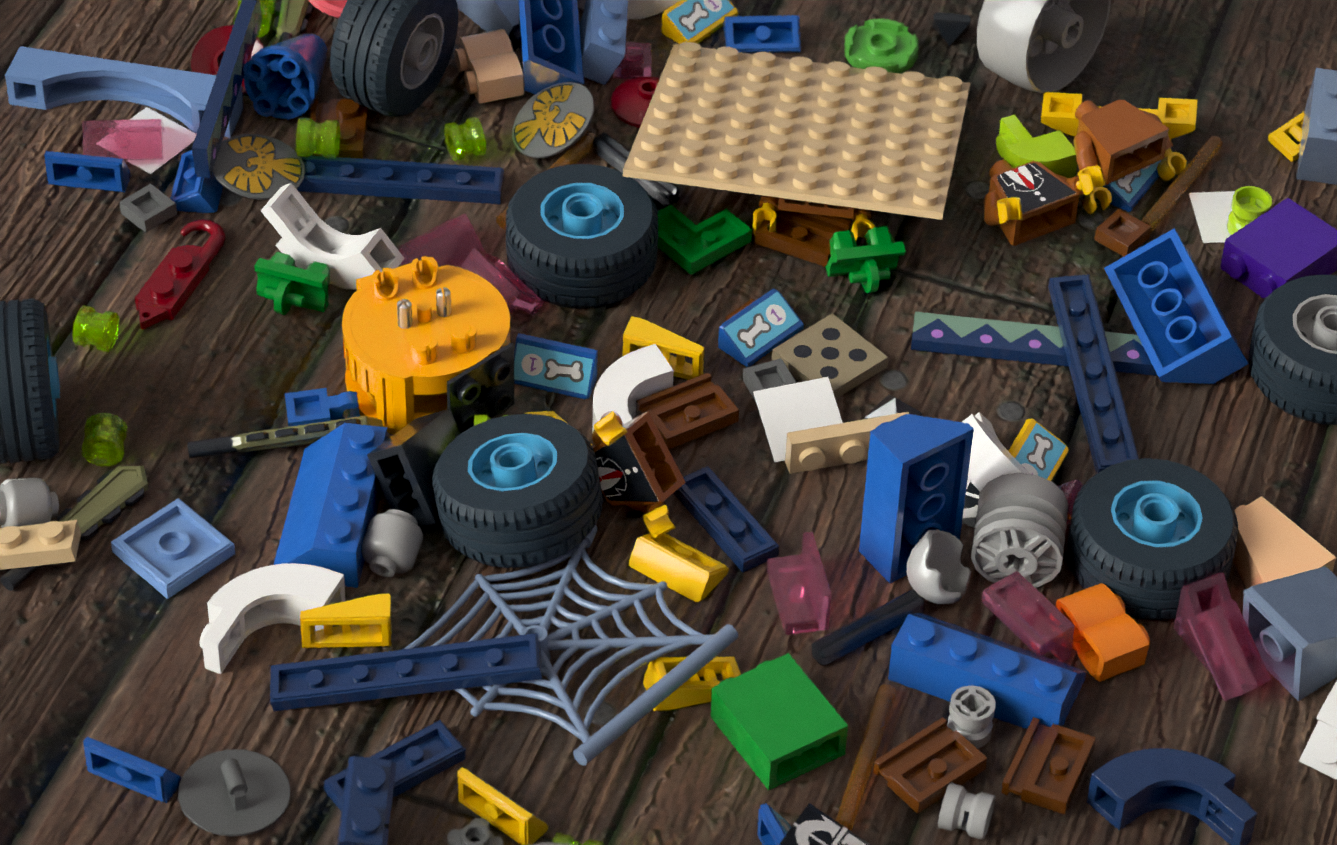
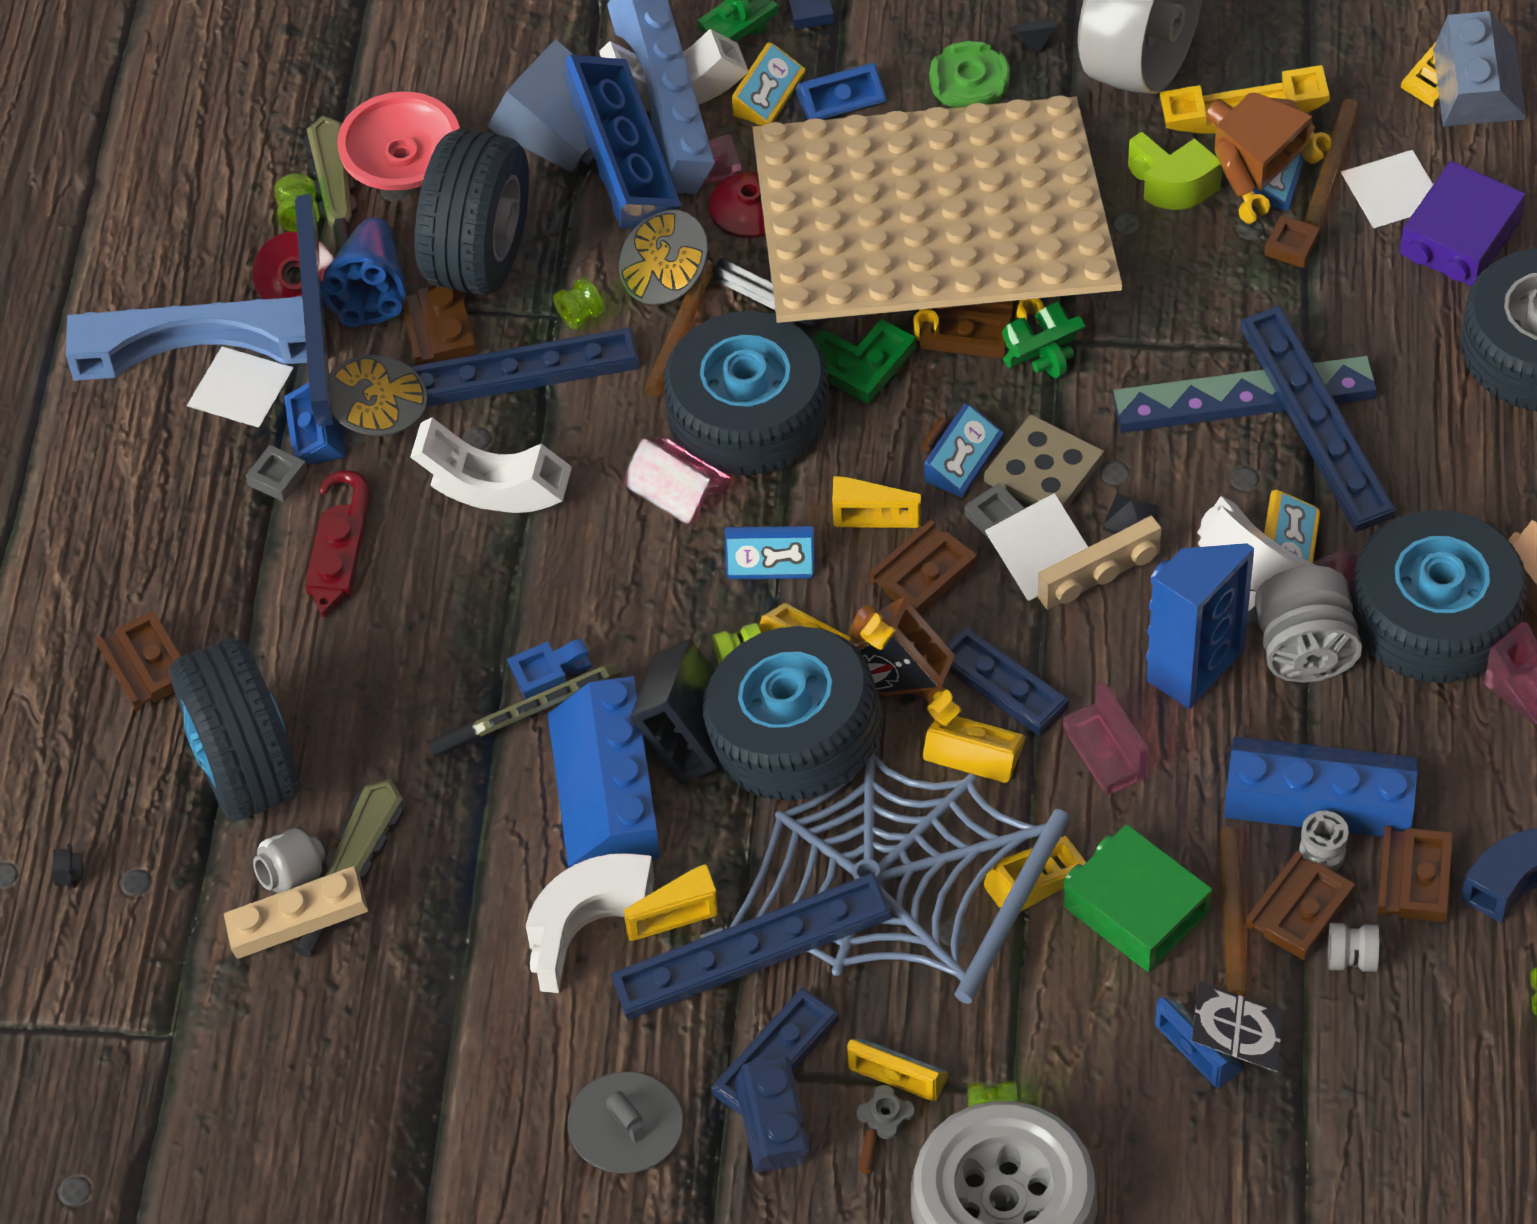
camera: 10 degrees left, 10 degrees up
(87, 171) = (194, 447): blue slope -> none
(95, 328) = (279, 633): clear neon green wheel -> none
(104, 439) = (340, 761): clear neon green wheel -> none
(124, 139) = (218, 397): clear pink panel -> none
(130, 770) = (514, 1128): blue slope -> none
(173, 548) = (456, 865): medium blue tile -> none
(291, 285) = (464, 528): green hips -> none
(318, 138) = (428, 346): clear neon green wheel -> none
(392, 543) = (681, 802): light grey head -> none
(427, 344) = (640, 569): light orange piece -> none
(446, 243) = (602, 444): clear pink panel -> none
(490, 66) = (572, 206): light nougat brick -> none
(629, 380) = (853, 553): white arch -> none
(866, 627) = (1187, 767): black axle -> none
(936, 568) = (1237, 687): light grey hair -> none
(1030, 616) = (1347, 716): clear pink panel -> none
(1035, 200) = (1191, 224): torso -> none
(1103, 632) = (1419, 712): orange brick -> none
(1175, 313) = (1377, 325): blue slope -> none
(1246, 206) = (1412, 182): lime wheel -> none

